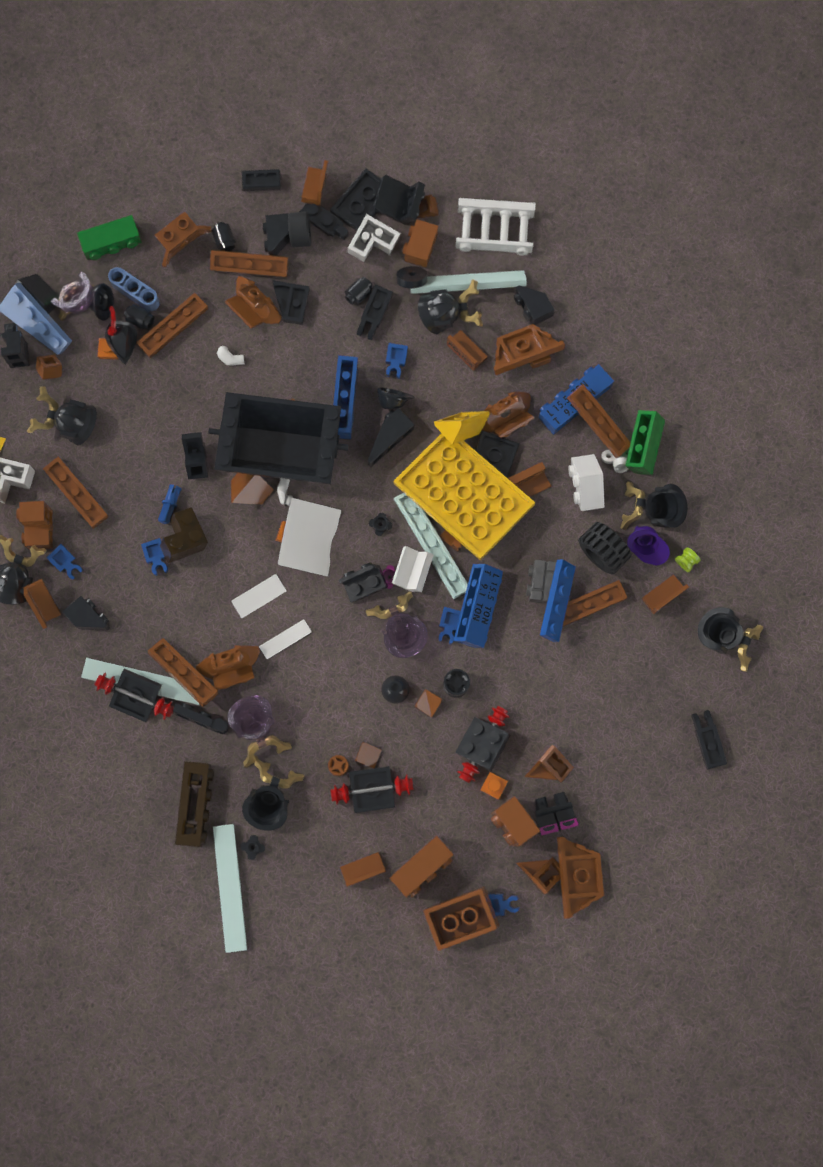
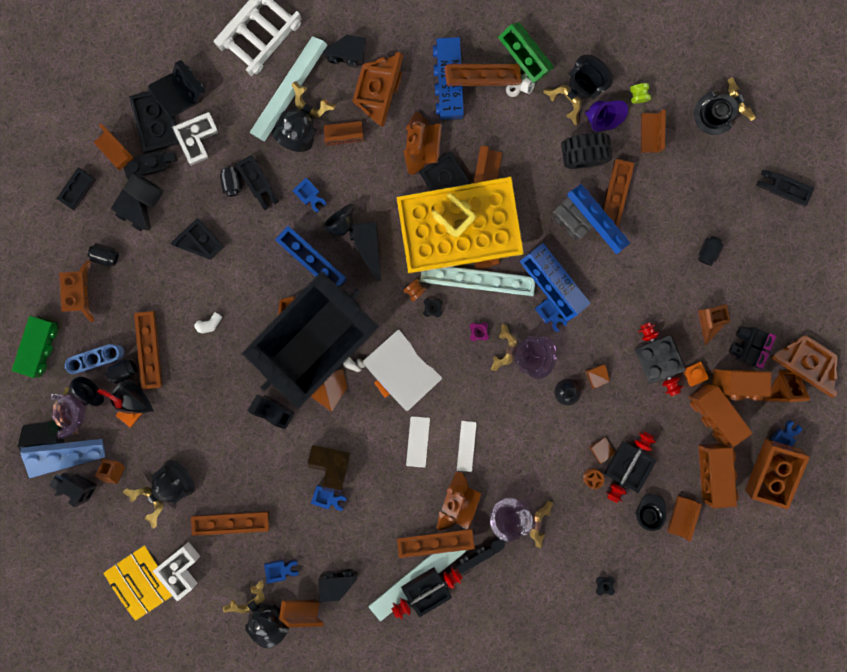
camera: 50 degrees left, 10 degrees up
(37, 523) = (236, 572): dark orange brick -> none
(169, 504) = (294, 458): blue axle -> none
(202, 814) = (564, 628): dark brown brick -> none
(230, 888) = (621, 623): light aqua tile -> none
(249, 263) = (141, 251): dark orange plate -> none
(252, 304) = (178, 275): dark orange piece -> none
(266, 806) = (584, 554): black helmet -> none
(346, 836) = (651, 512): none -> black hat
(363, 582) = (470, 356): black bracket -> none
(383, 498) = (415, 290): none -> dark orange wheel
(411, 277) = (251, 130): black piece -> none
(412, 569) = (488, 310): white panel -> none
(421, 243) = (229, 102): dark orange brick -> none
(428, 207) = (201, 71): dark orange slope -> none
(456, 683) = (601, 344): black wheel -> none
(462, 425) = (403, 185): yellow slope -> none
(466, 492) = (465, 207): none -> light yellow piece
(473, 827) = (719, 415): none -> dark orange brick
(588, 482) = (523, 121): white brick -> none
(606, 716) = (710, 250): none -> black brick

